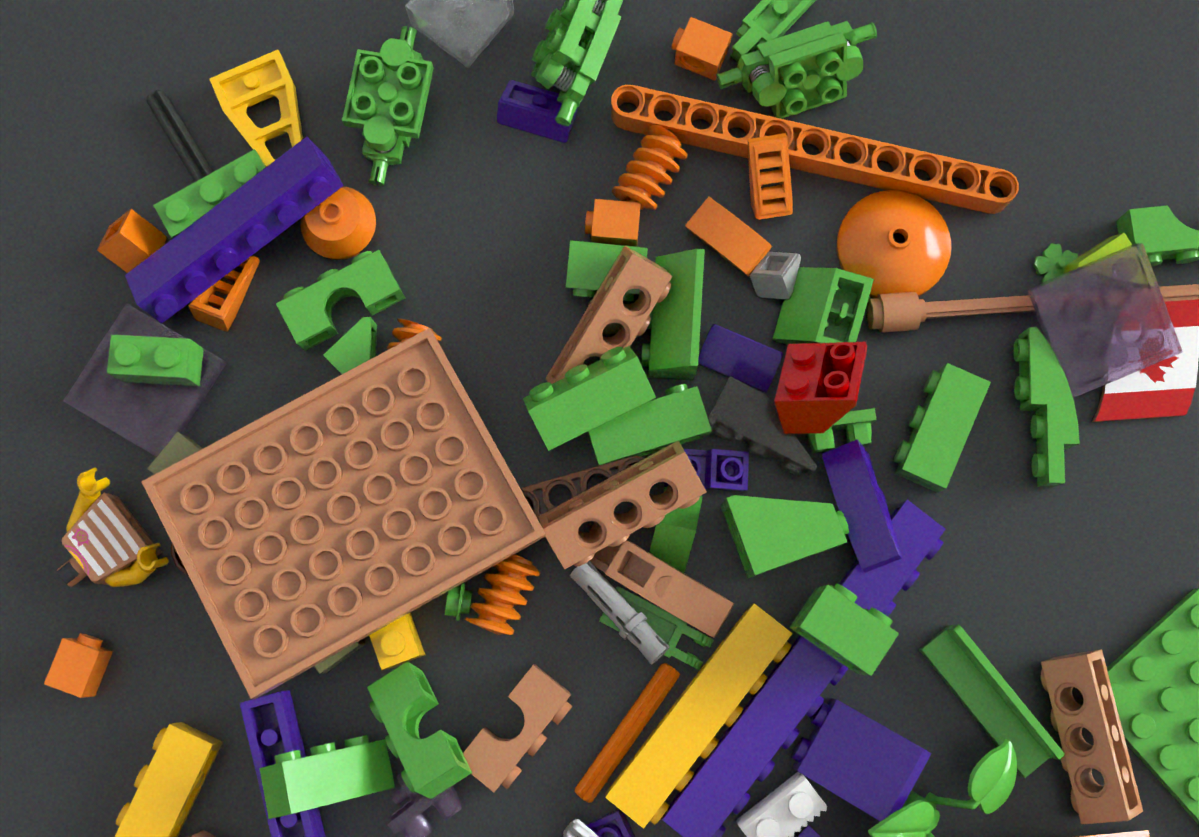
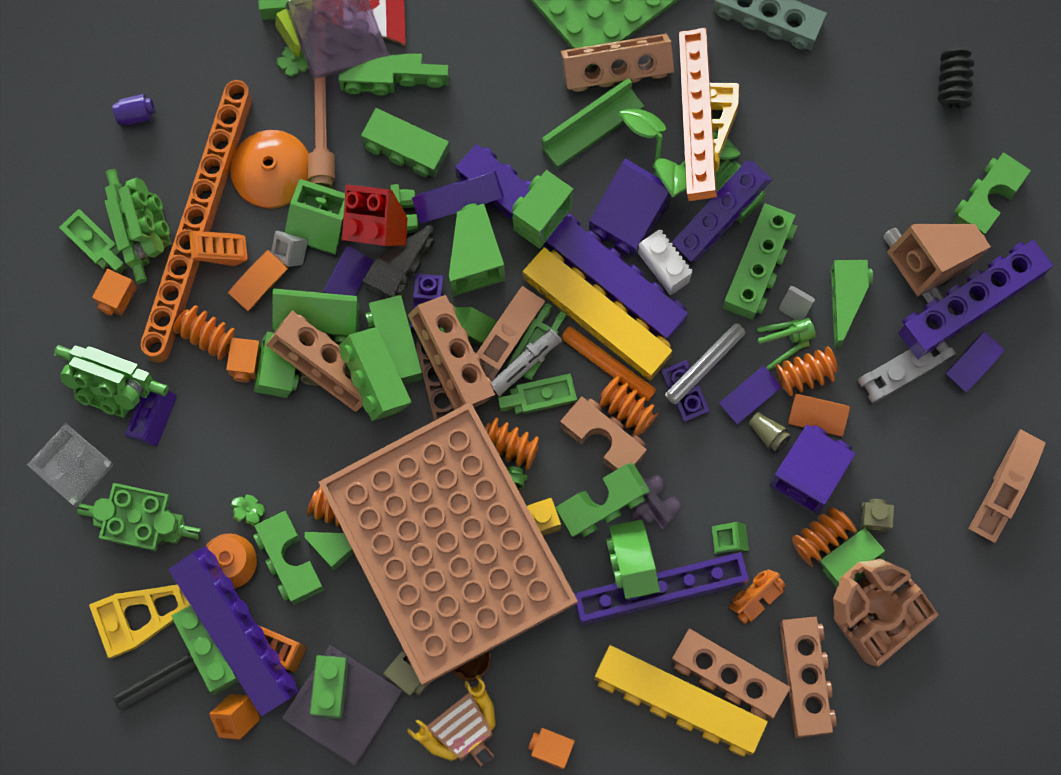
camera: 90 degrees left, 5 degrees down
(408, 242) = (248, 509): none -> bright green plant
(561, 763) = (627, 406): none -> orange piece
(576, 635) = (539, 395): none -> bright green hinge
(966, 54) = (133, 110): none -> dark purple brick

